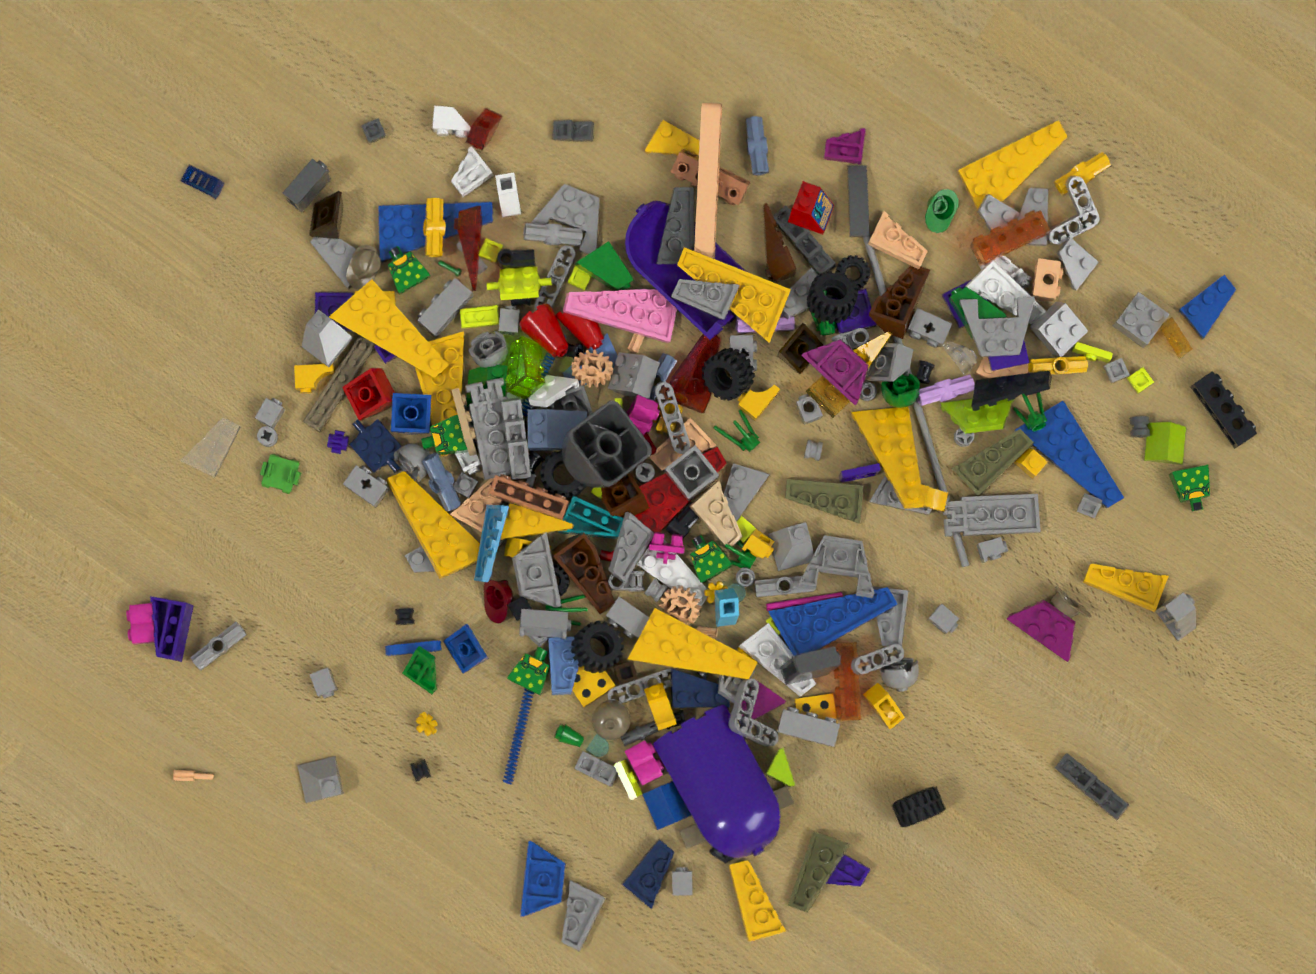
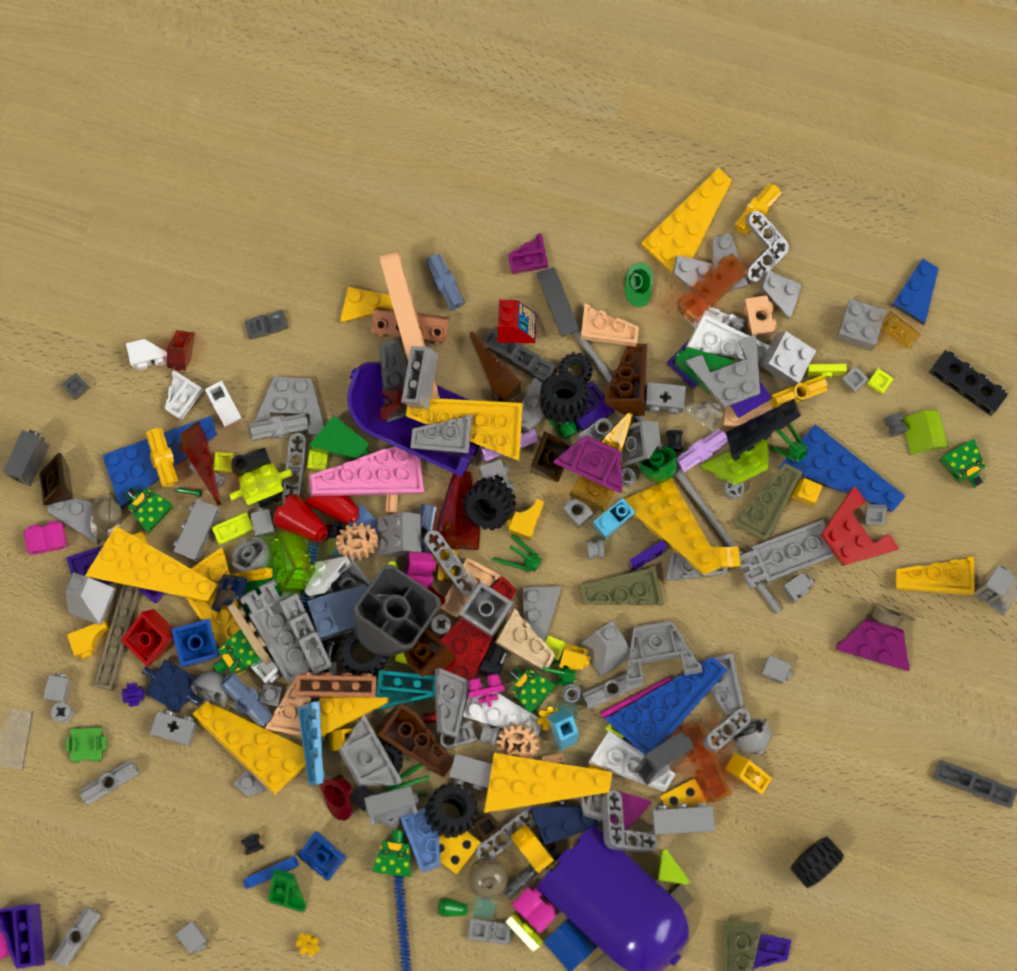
camera: 15 degrees left, 5 degrees down
(279, 517) = (99, 789): none -> light grey piece
(301, 268) = (45, 538): none -> dark pink brick
(458, 375) = (229, 590): none -> clear blue wing
(482, 367) = (255, 574): none -> yellow axle
(672, 245) = (394, 398): none -> clear red slope
(701, 233) = (419, 377): none -> light grey brick
(840, 427) = (613, 519): none -> medium azure slope
(1055, 519) = (847, 536): none -> red wing

